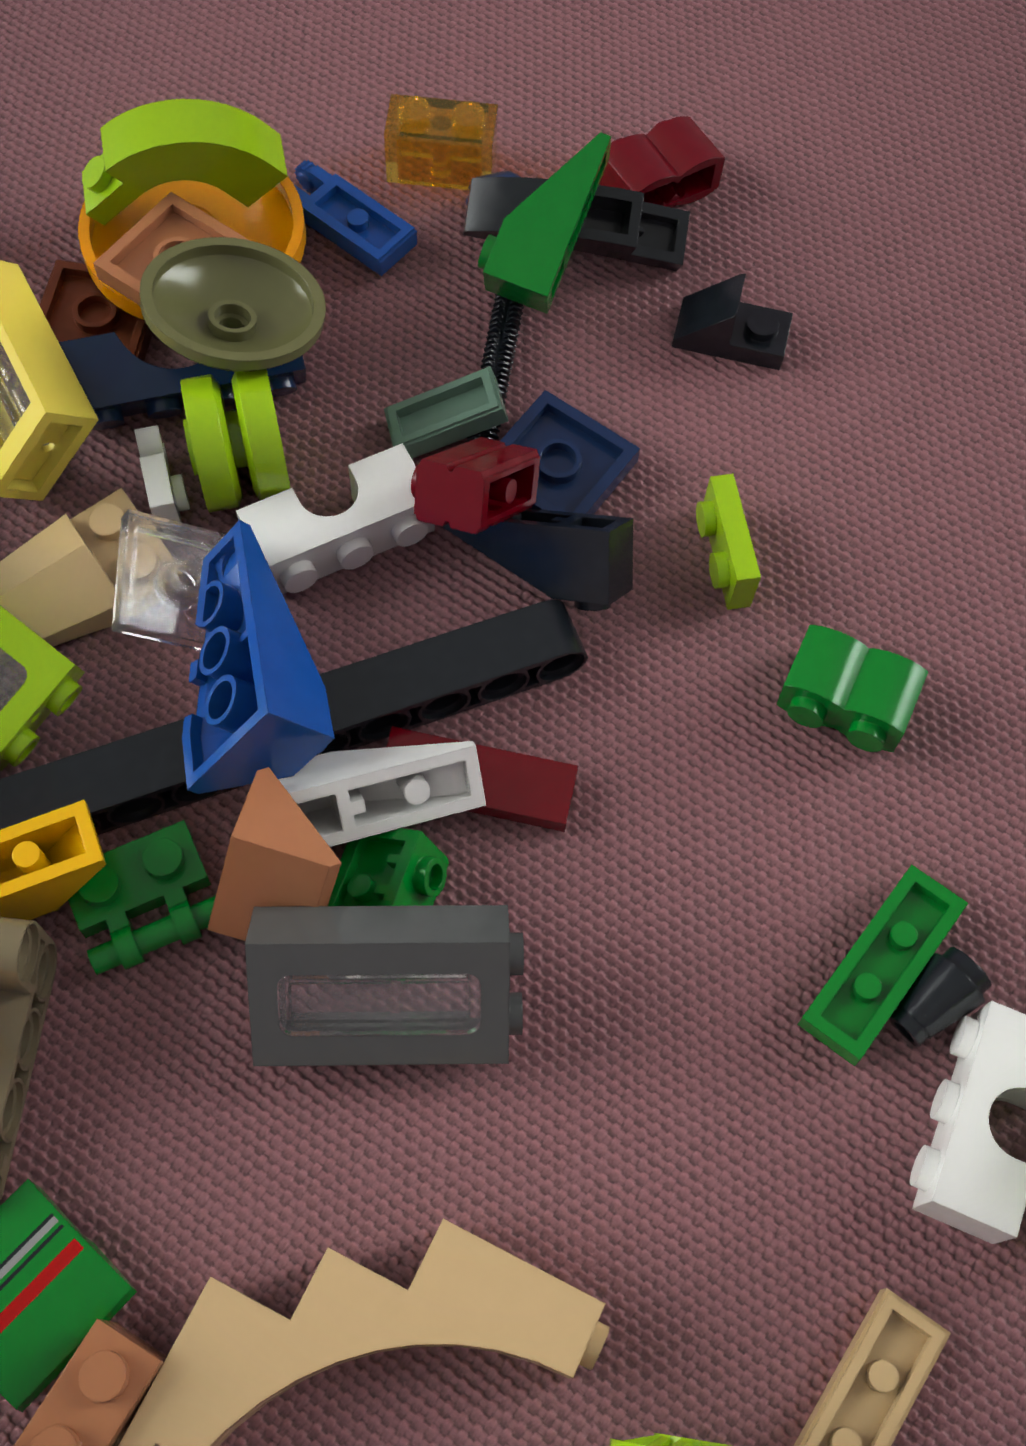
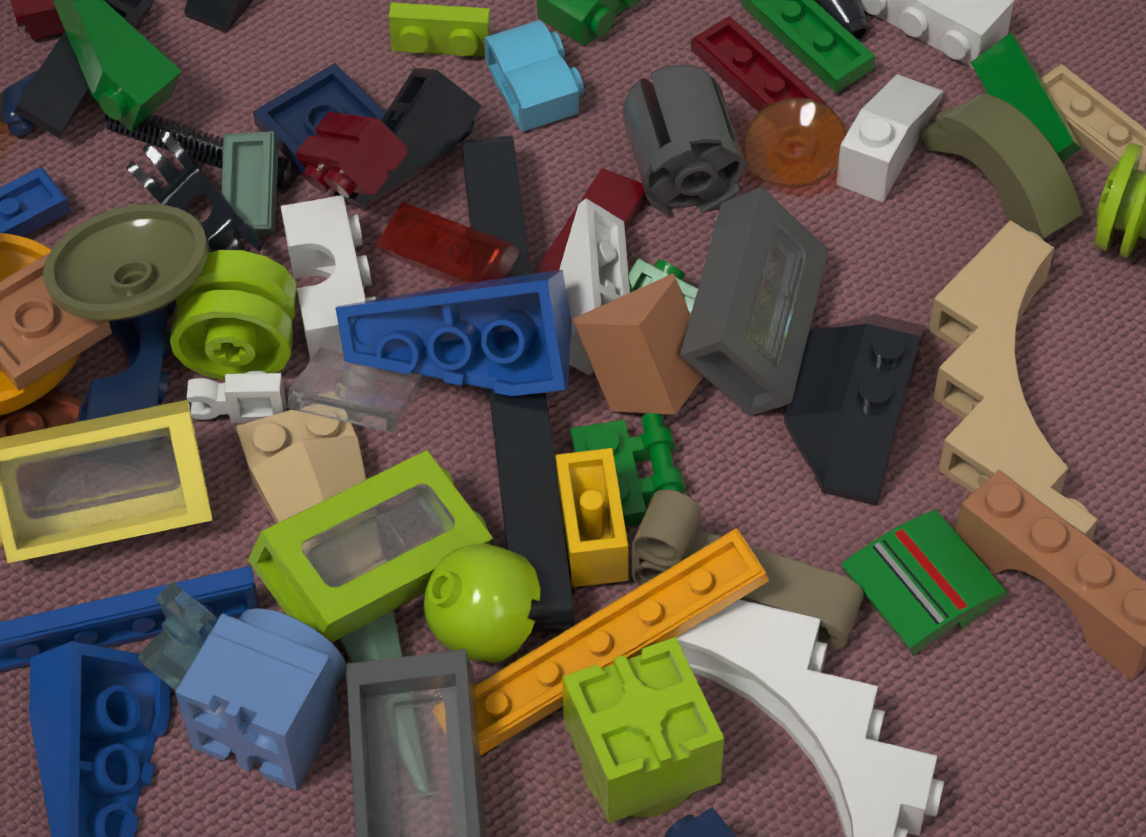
camera: 70 degrees left, 10 degrees down
(300, 1147) = (853, 401): none -> black wedge
(370, 413) = (190, 185): none -> black piece
(389, 625) = (446, 247): none -> clear red tile
(628, 840) = (683, 139): none -> dark grey cylinder
(673, 956) = (790, 127): none -> clear orange dish
(694, 655) = (533, 75): none -> medium azure brick
(716, 1282) = (1014, 159): none -> olive arch
(747, 1106) = (885, 136): none -> white slope
(792, 922) = (748, 66): none -> dark red tile
(849, 1292) = (1012, 77): none -> green tile

